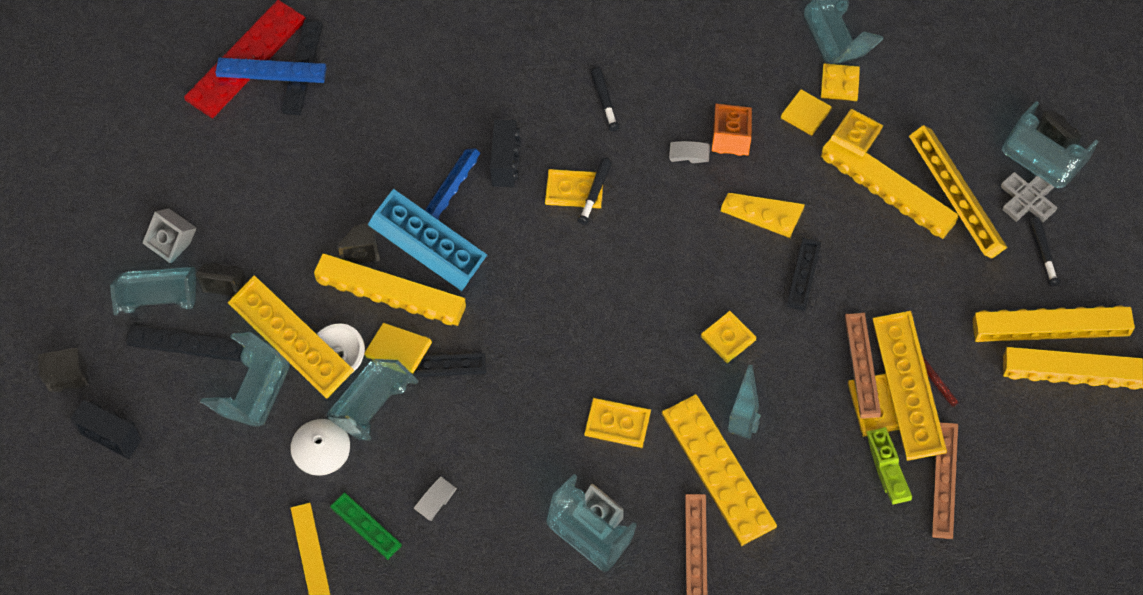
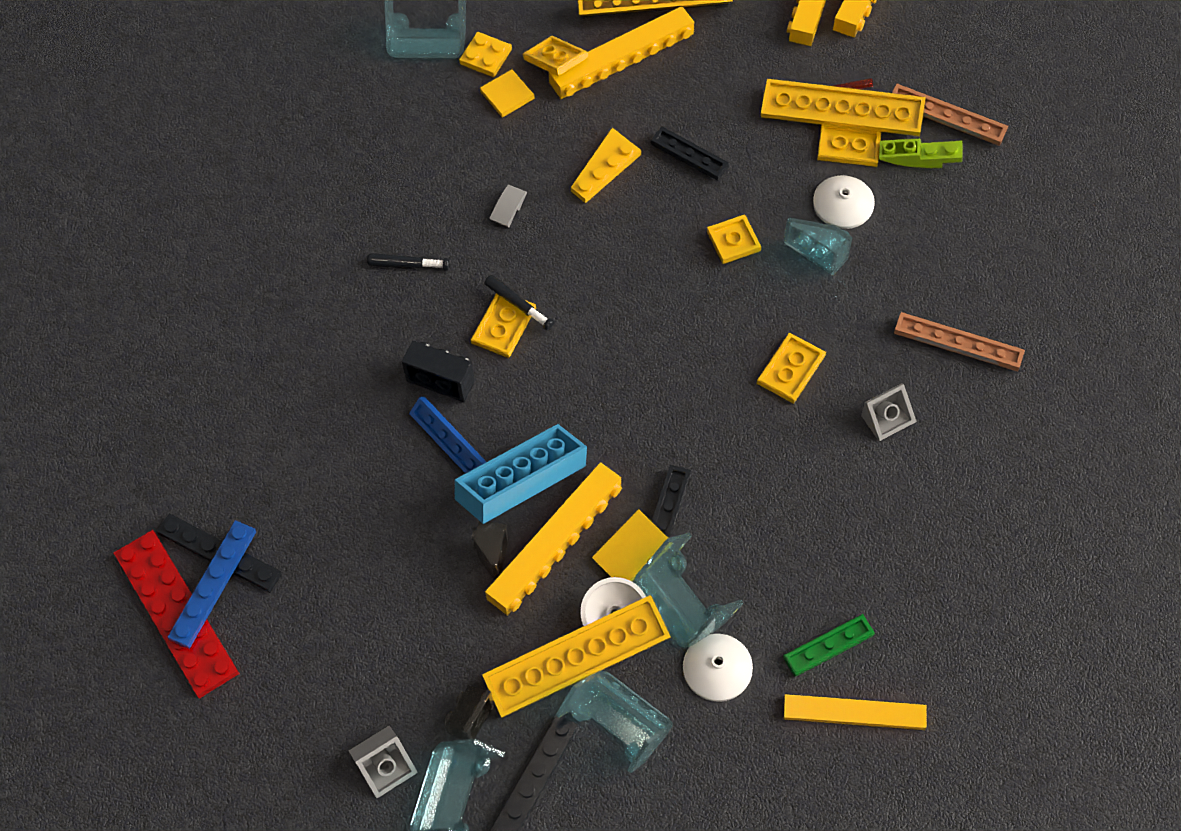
camera: 70 degrees left, 0 degrees up
(434, 498) = (822, 564): light grey slope -> none
(586, 529) = (914, 425): clear light blue windscreen -> none
(719, 470) = (872, 295): yellow plate -> none
(732, 129) = (500, 159): orange slope -> none
(808, 428) = (841, 209): none -> white dish
(862, 365) = (809, 136): nougat plate -> none

